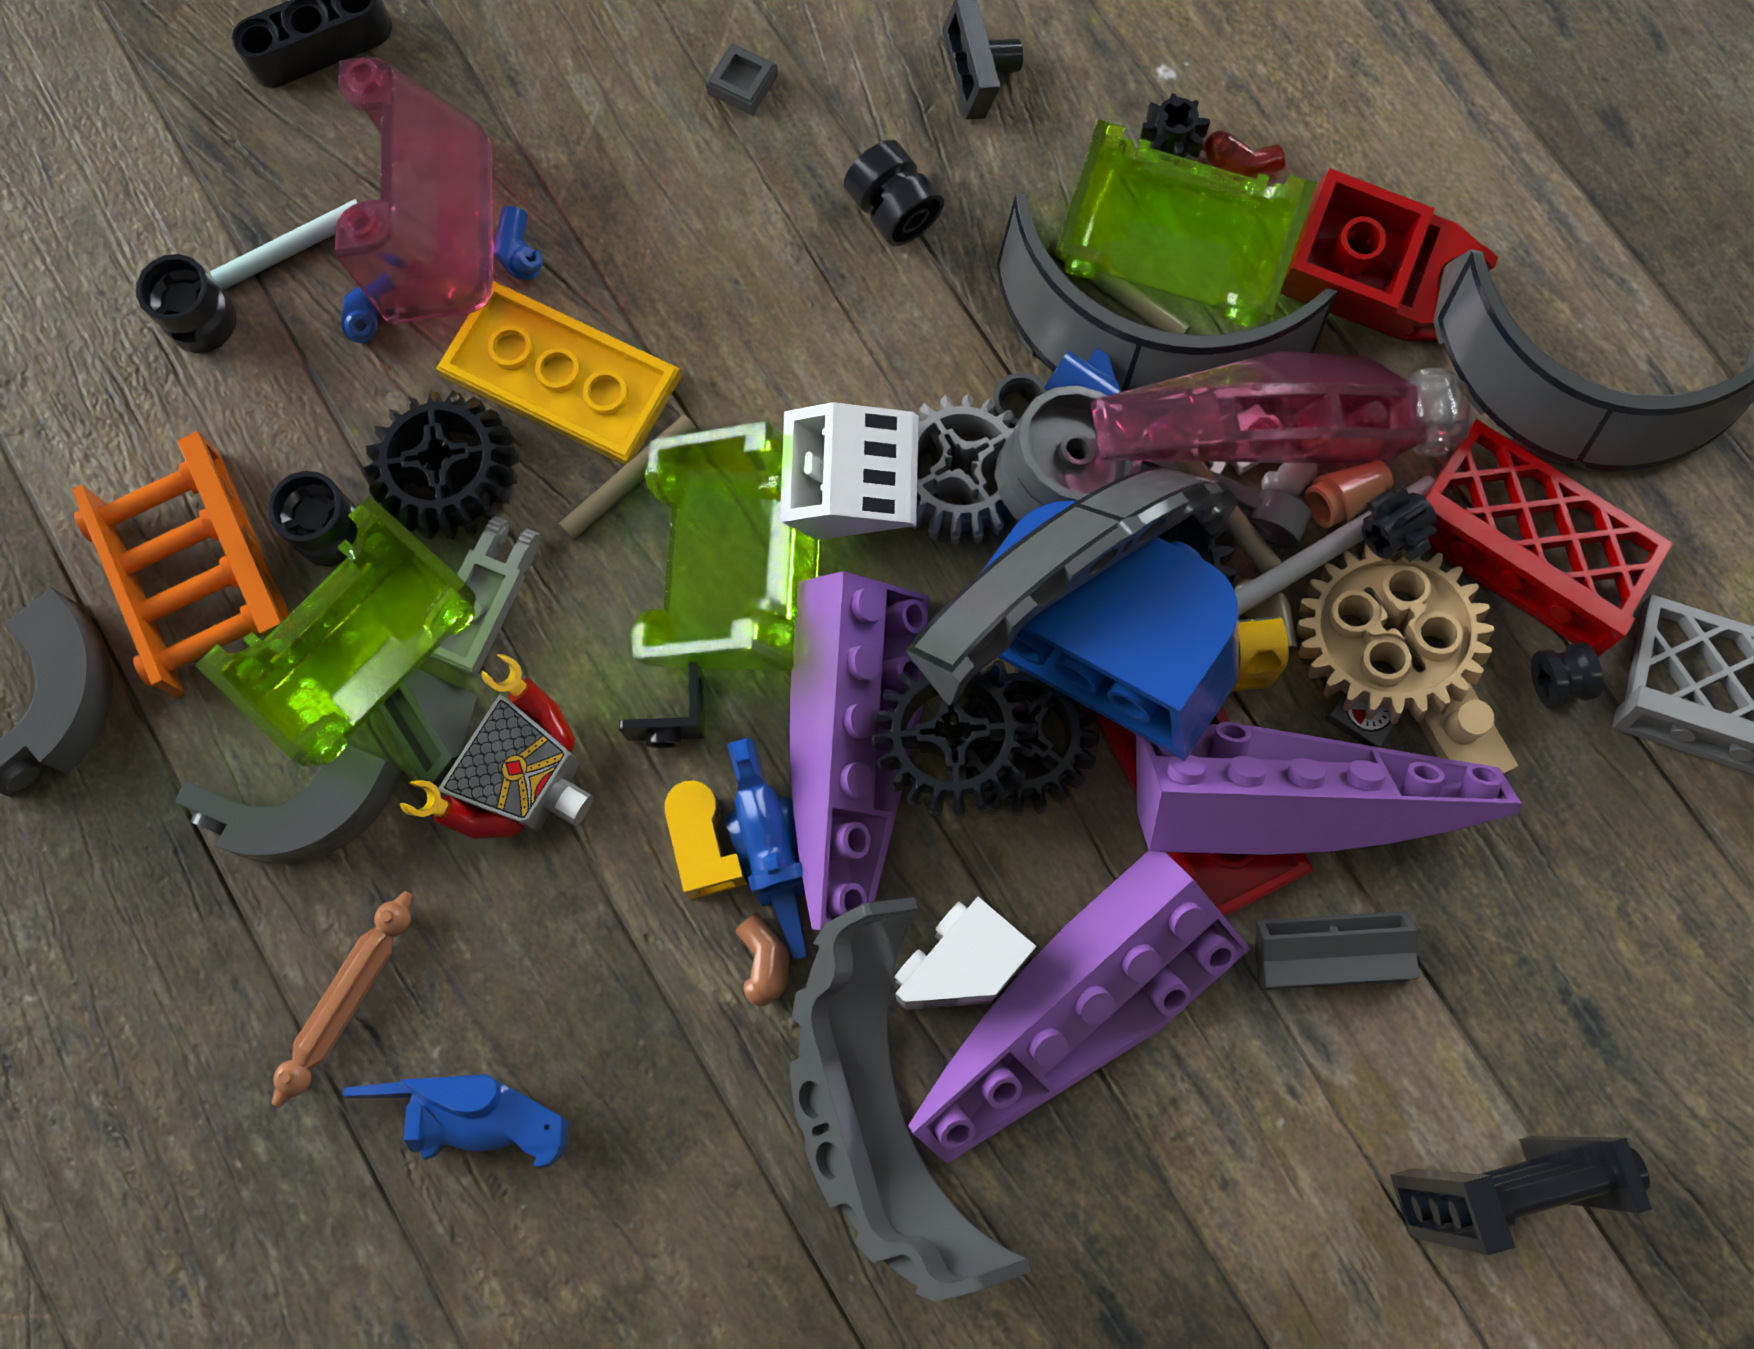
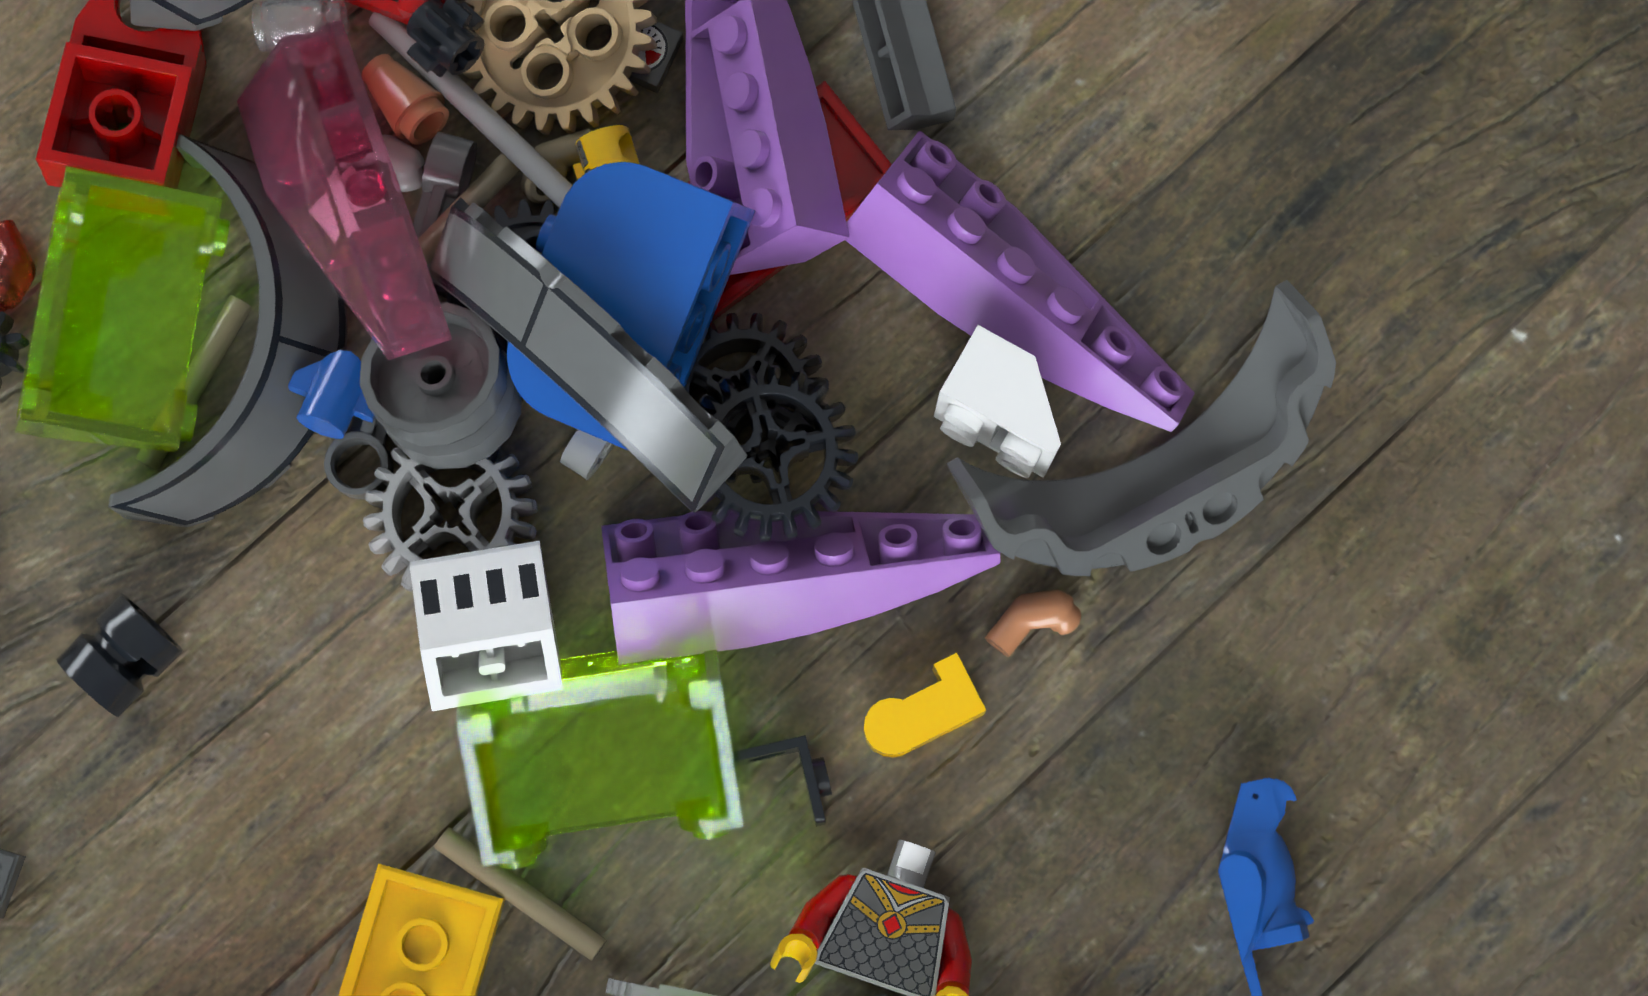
camera: 110 degrees left, 5 degrees up
(766, 842) = (910, 640): blue animal -> none

